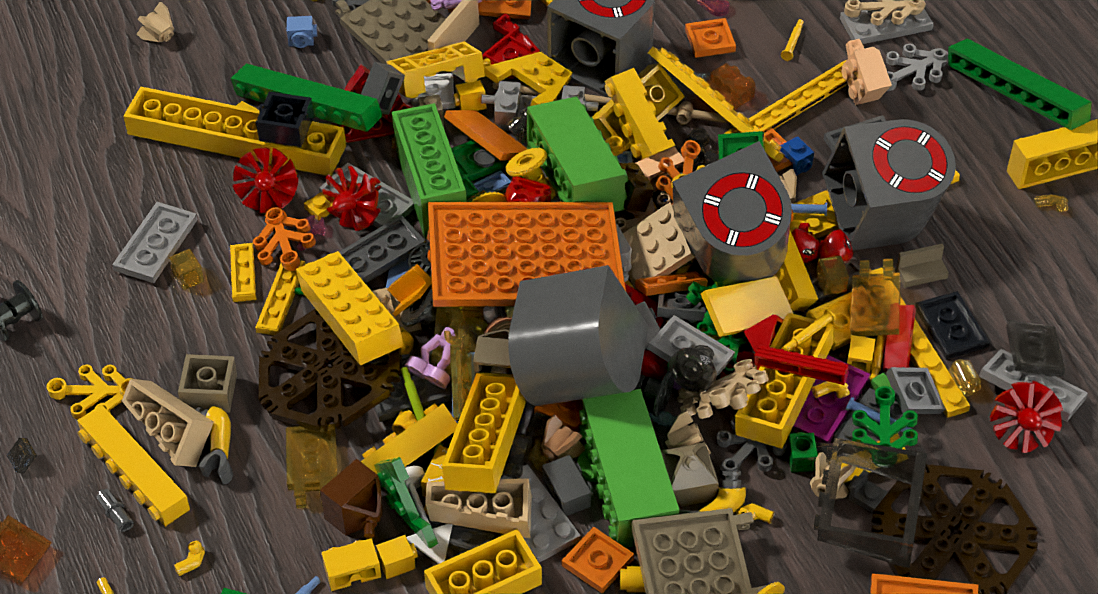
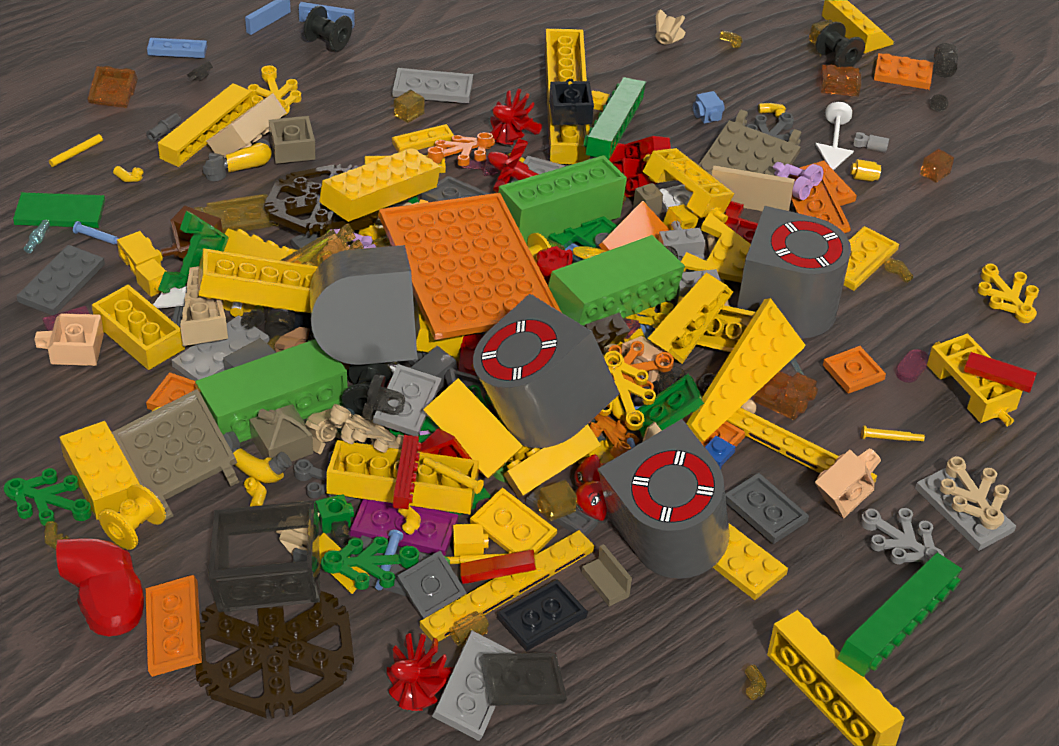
camera: 70 degrees right, 5 degrees down
(384, 85) = (637, 149): dark grey brick -> none
(875, 301) = (535, 534): clear yellow tile -> none

